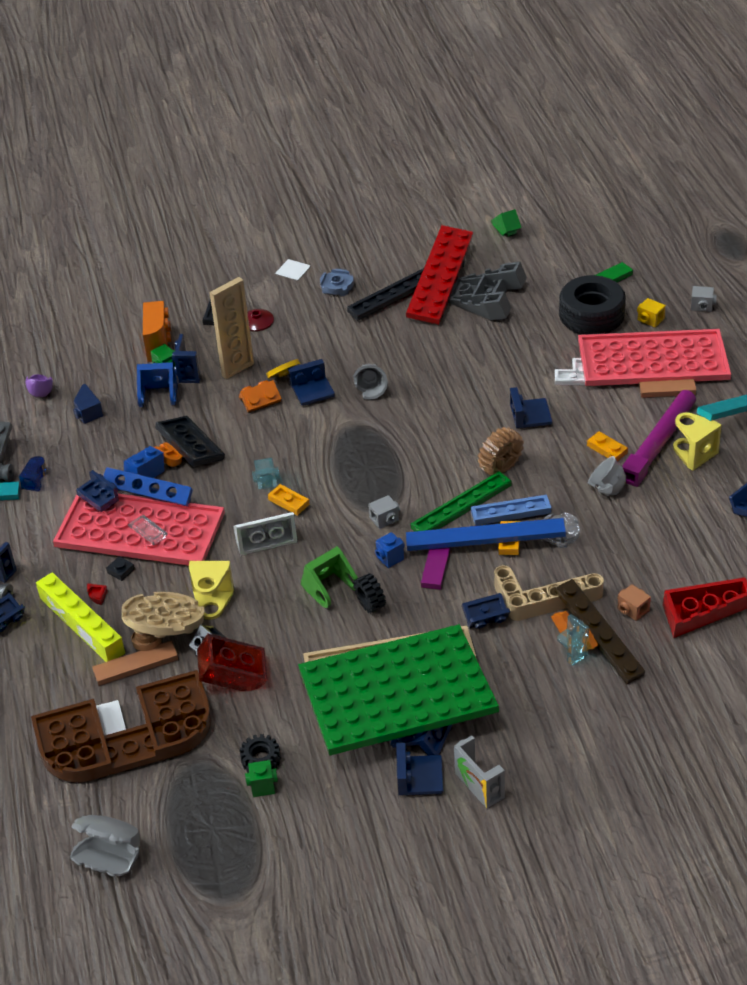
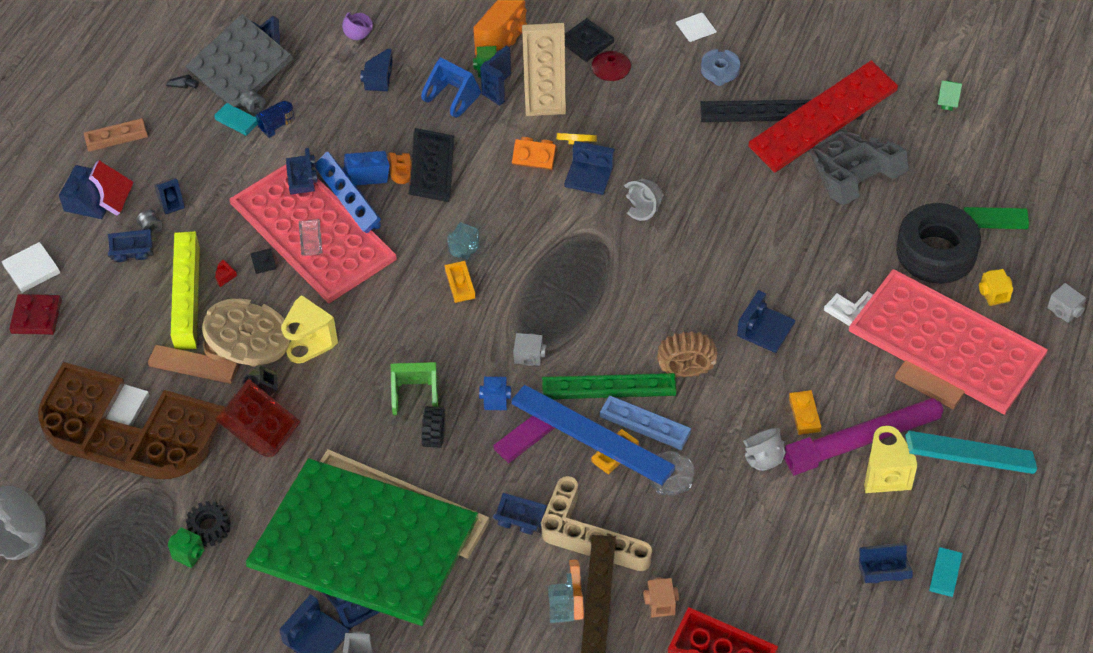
camera: 35 degrees right, 10 degrees up
(265, 533) = (405, 304): white slope -> none

